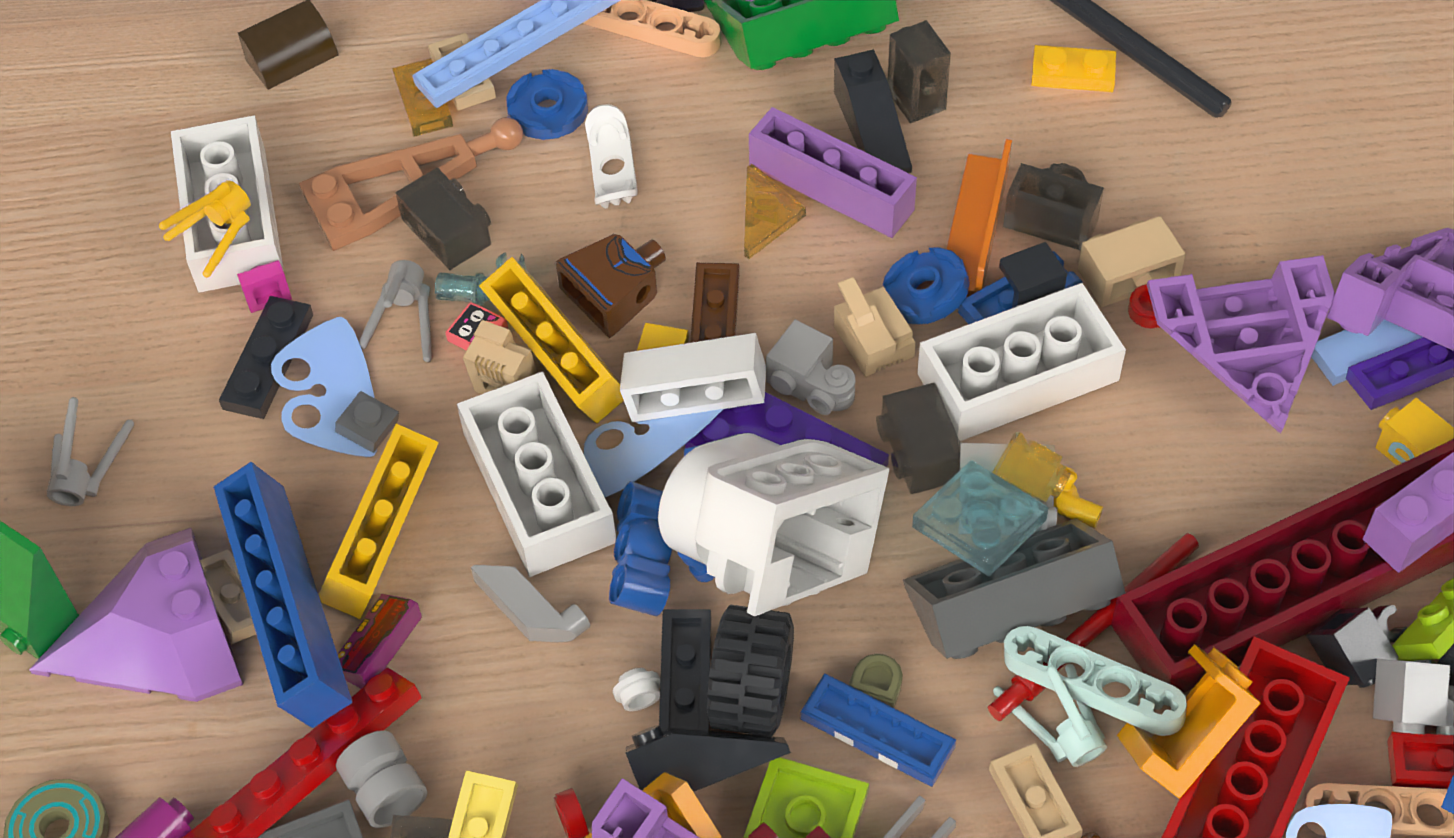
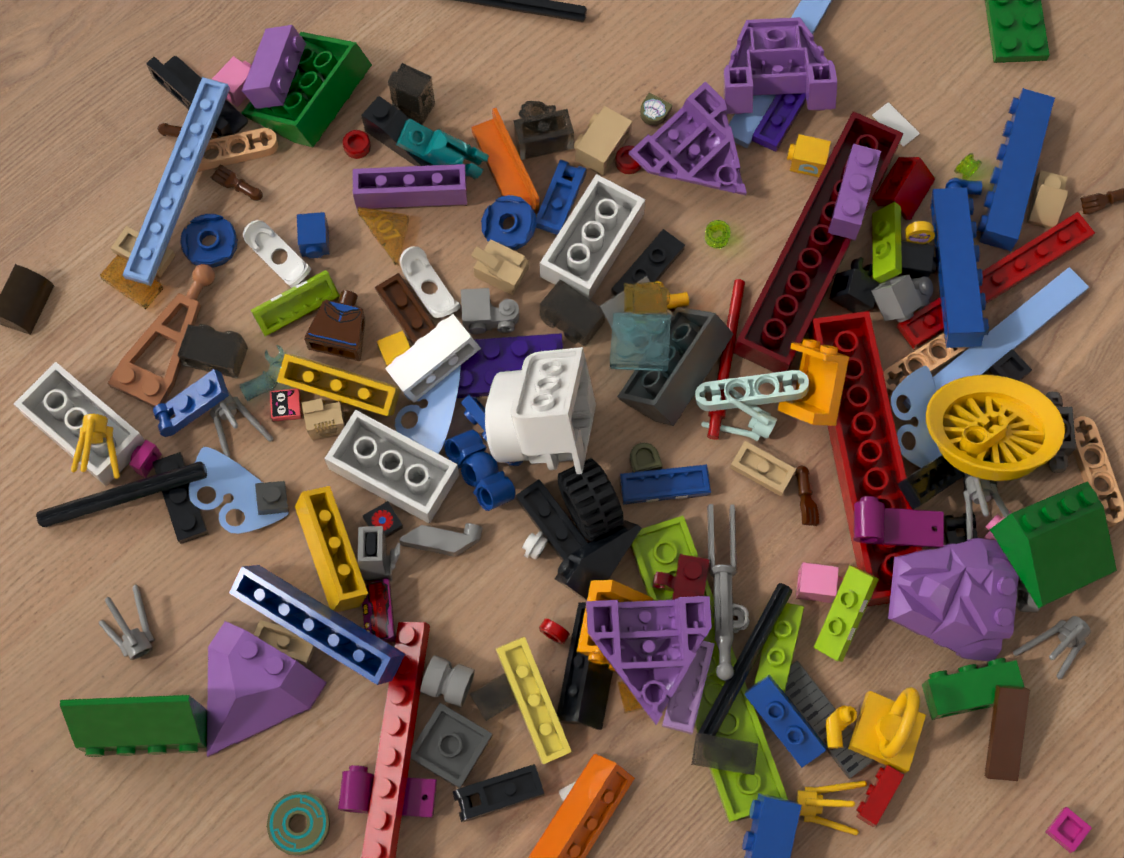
camera: 40 degrees left, 15 degrees up
(205, 306) = (121, 494): none -> black axle
(365, 255) = (190, 403): none -> blue plate
(422, 559) = (372, 554): none -> light grey piece
(474, 536) = (383, 516): none -> black tile
(582, 221) = (295, 303): none -> lime plate
(627, 53) = (229, 179): none -> reddish brown piece
(670, 161) = (313, 235): none -> blue brick
(768, 276) = (418, 271): none -> white piece
(810, 98) = (356, 144): none -> red tile
(906, 148) = (440, 148): none -> teal plate
(1033, 273) = (568, 185): black panel -> none
(1073, 68) = (487, 36): yellow plate -> none
(1095, 442) = (652, 261): none -> black plate
(1209, 452) = (722, 240): none -> clear neon green bush
(1233, 265) = (654, 110): none -> tile

